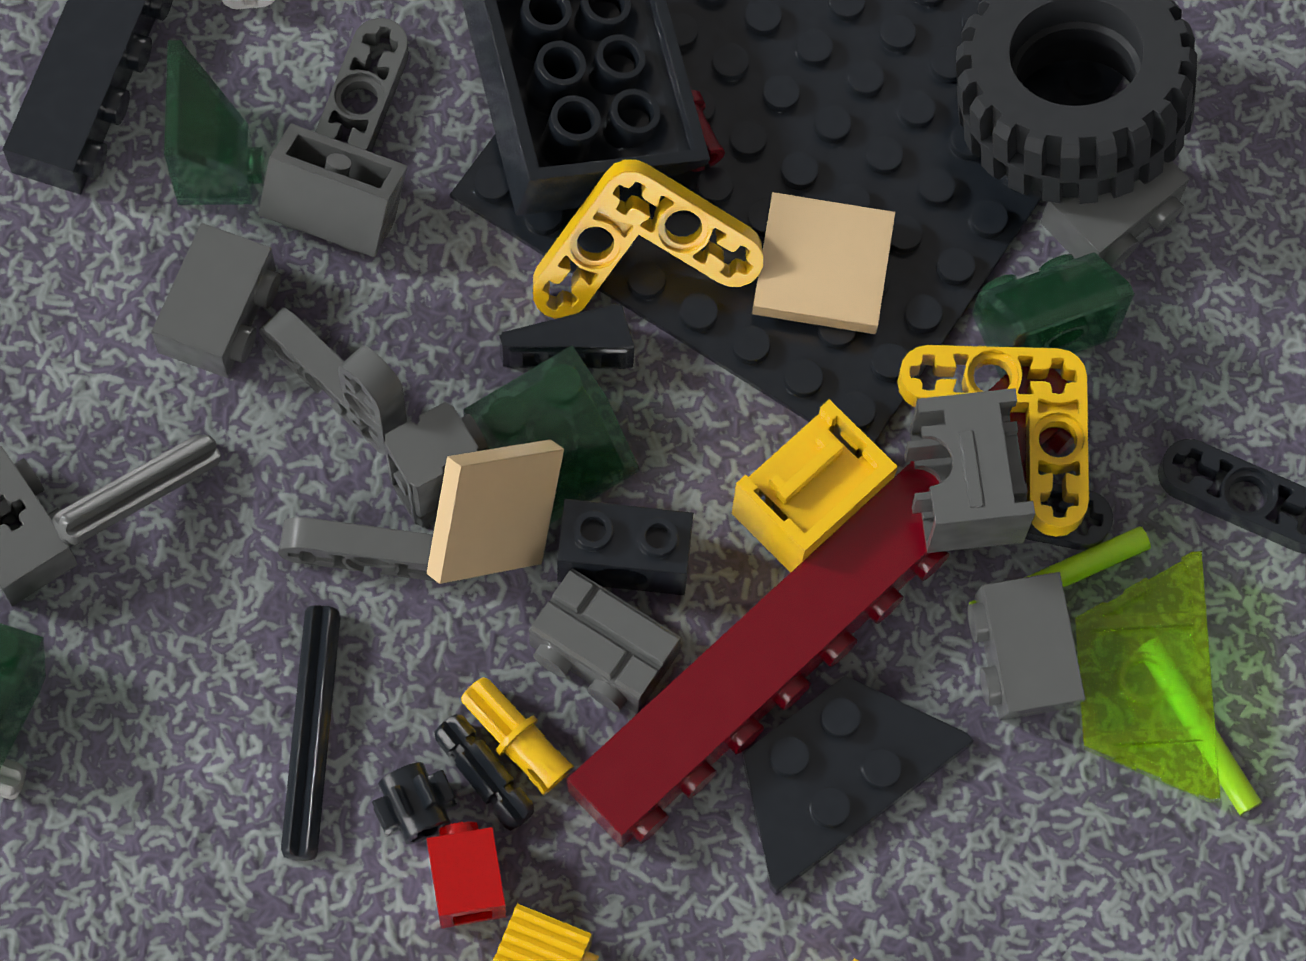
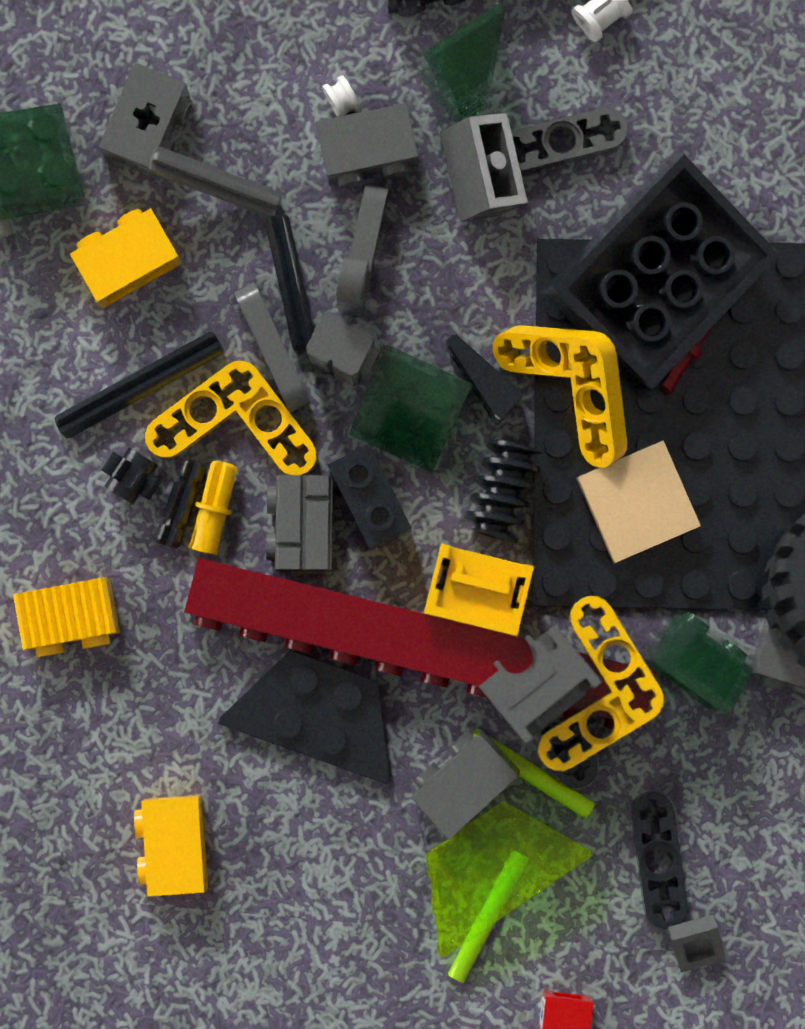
camera: 60 degrees right, 15 degrees up
(140, 295) = (342, 97): none -> white bush
(150, 647) = (125, 256): none -> yellow brick
(310, 485) = (290, 280): none -> black axle
(420, 627) = (246, 406): none -> yellow beam
(466, 874) = (108, 534): red brick -> none
(494, 510) = (333, 406): tan tile -> none
(710, 398) = (502, 489): none -> black piece

